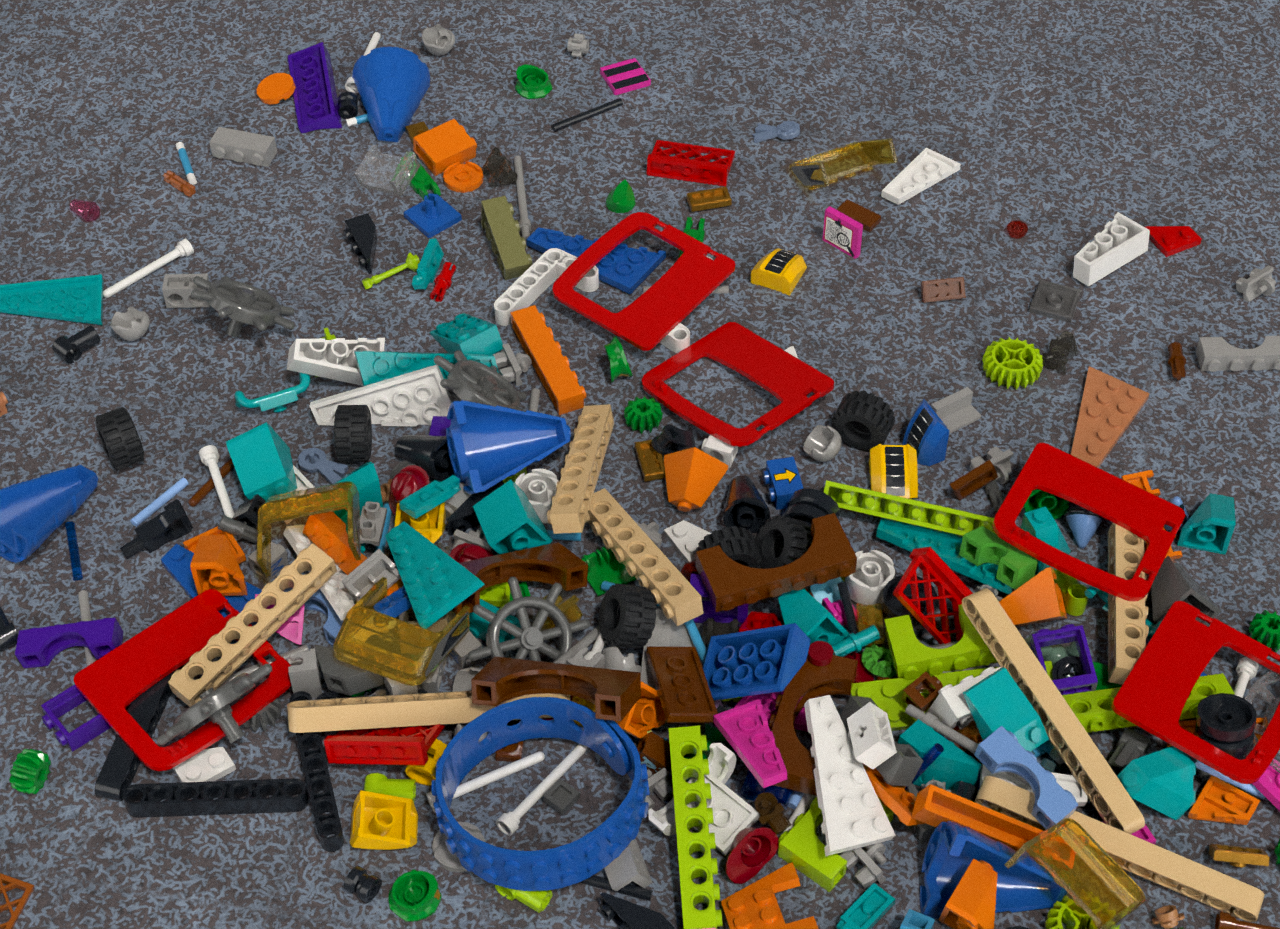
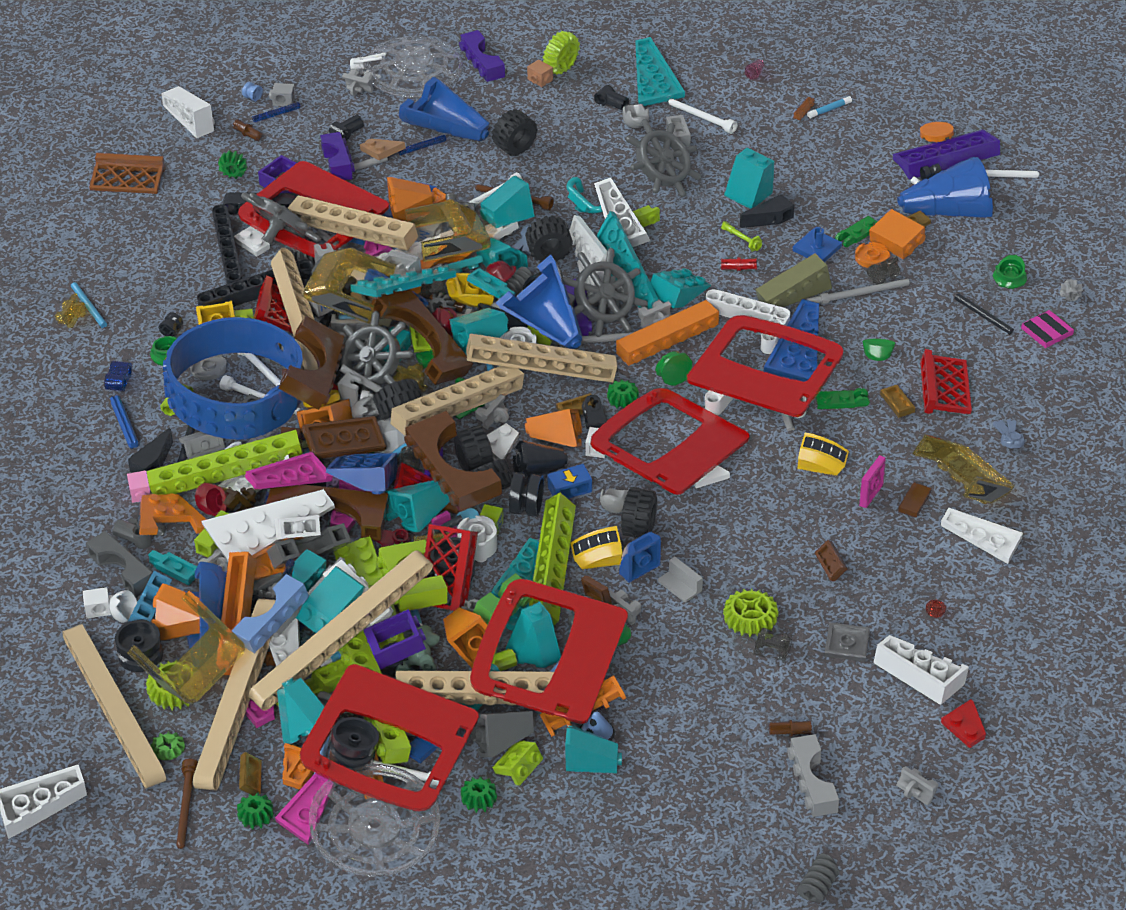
camera: 80 degrees right, 5 degrees down
(65, 594) = (381, 148): none -> medium nougat wing
(159, 502) = (475, 172): light blue bar -> none
(161, 529) = (450, 178): black piece -> none
(243, 146) = (854, 129): light grey brick -> none
(308, 239) = (750, 178): none -> teal slope
(372, 523) = (463, 265): light grey hips -> none
(386, 171) = (853, 206): clear panel -> none
(428, 265) = (762, 251): teal hinge -> none
(438, 40) = (1035, 204): light grey hair -> none
(820, 653) = (380, 502): dark red tile -> none
(856, 641) = (404, 529): teal pin -> none
(925, 684) = (362, 564): reddish brown brick -> none
(1104, 415) = (714, 683): nougat wing -> none
(1167, 916) = (191, 733): medium nougat plate -> none
(1221, 590) = (519, 761): none -> lime bracket

